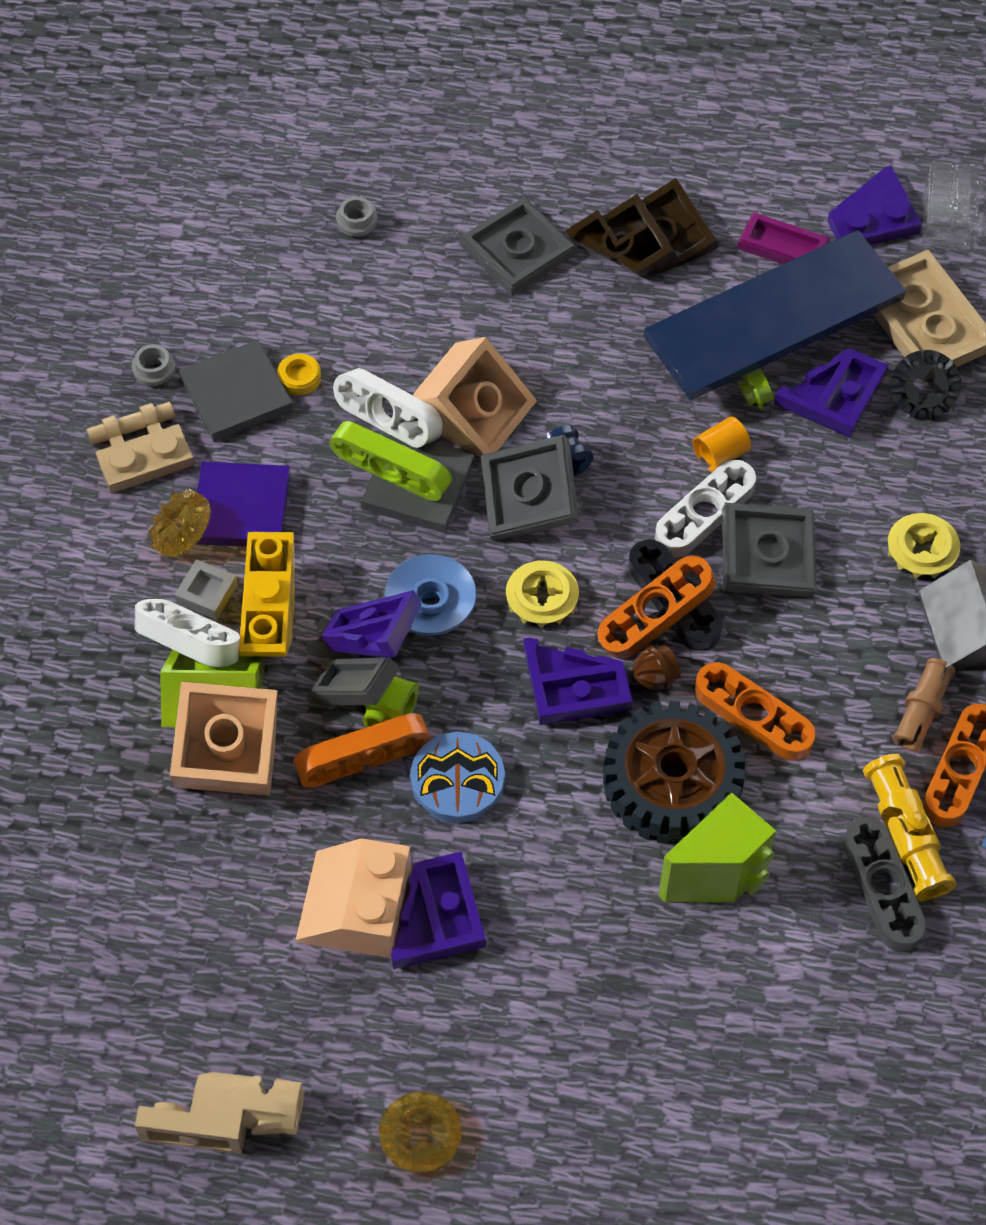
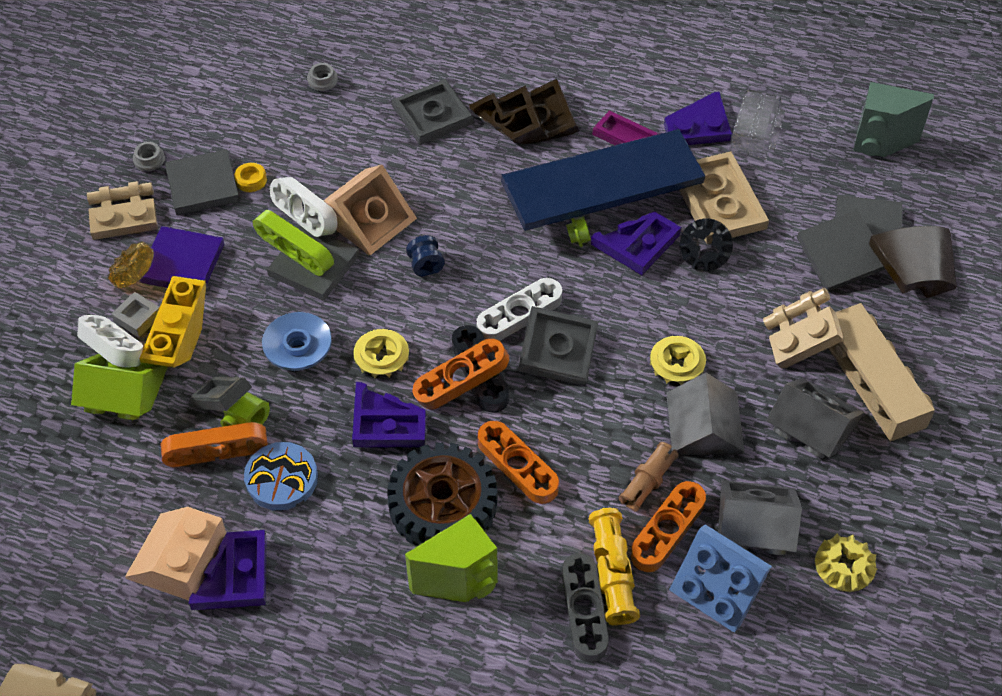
camera: 10 degrees right, 5 degrees down
(224, 739) = (110, 420): light nougat slope -> none
(373, 626) = (245, 355): dark purple wing -> none
(529, 488) = (390, 276): dark grey tile -> none
(656, 668) = (450, 419): reddish brown plate -> none
(722, 442) = (543, 264): light orange beam -> none

